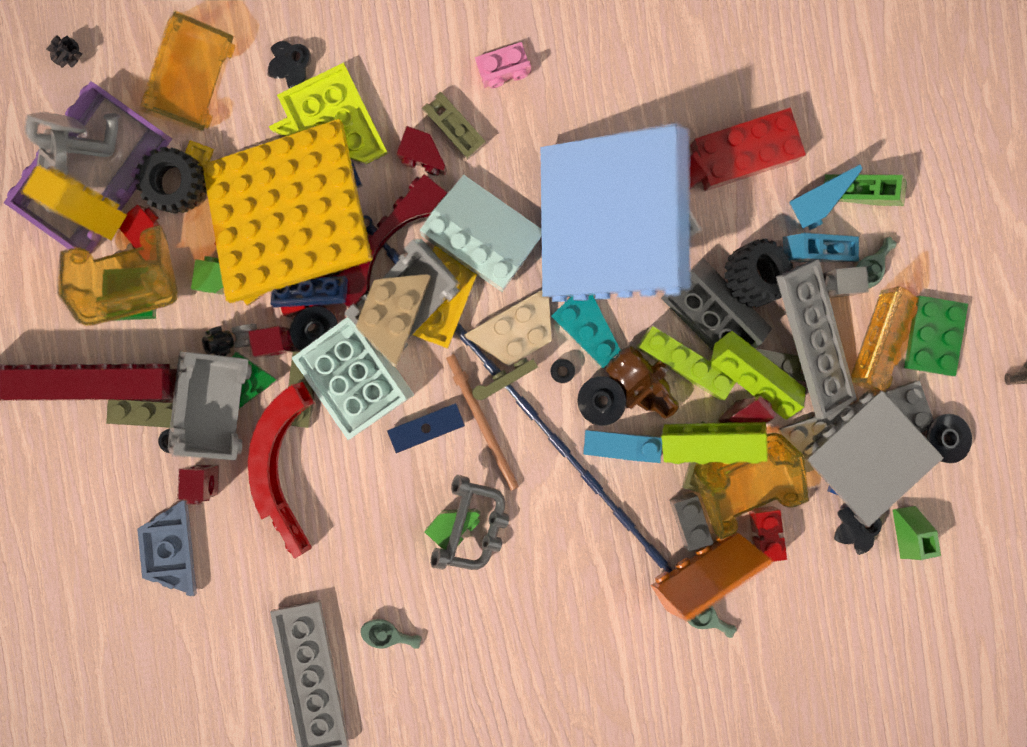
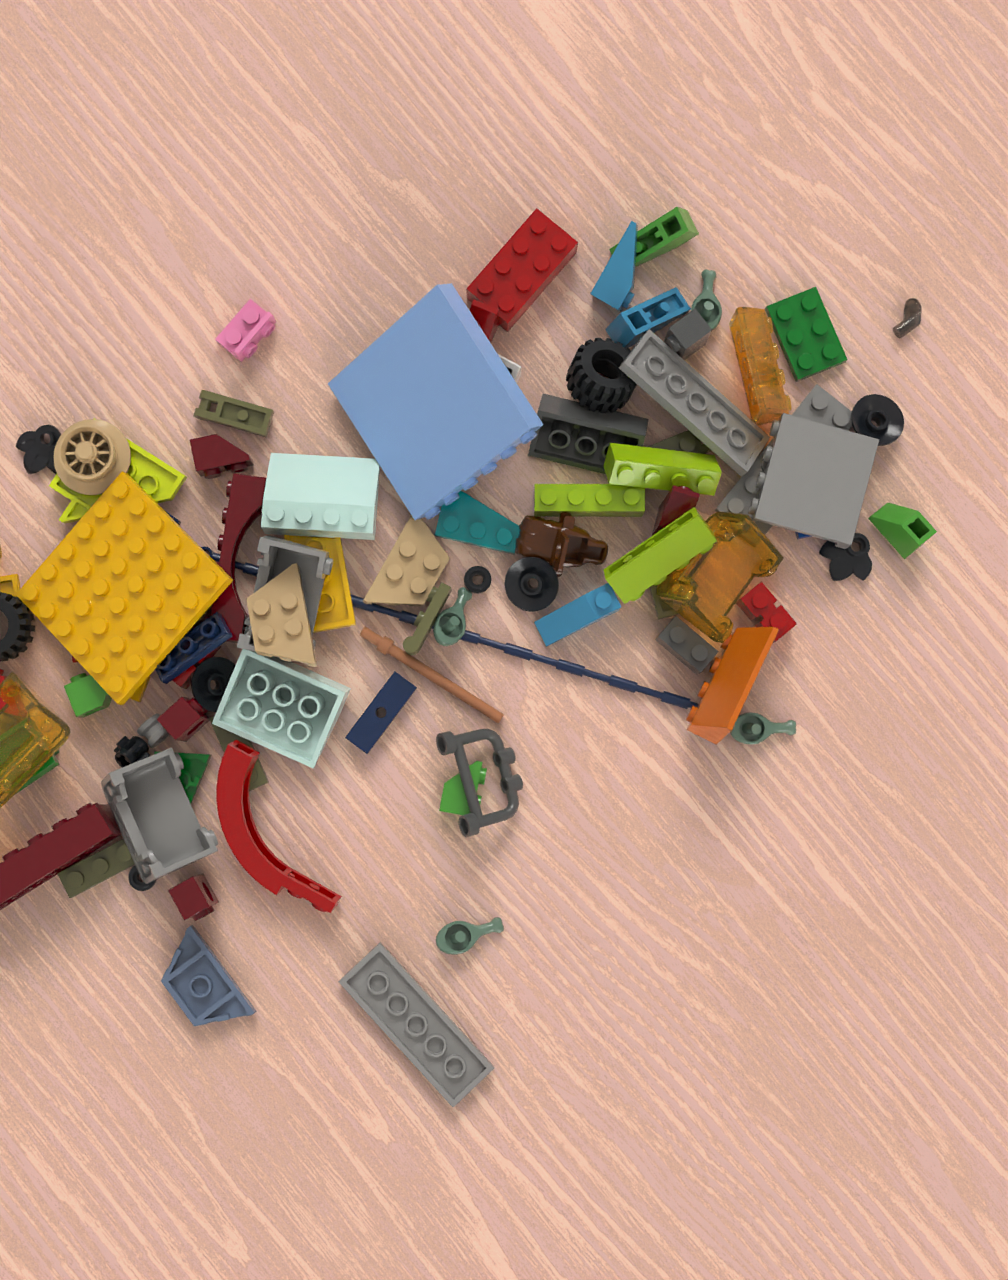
camera: 35 degrees left, 5 degrees down
(323, 91) = (91, 456): none -> tan piece
(521, 393) = (451, 622): none -> sand green piece

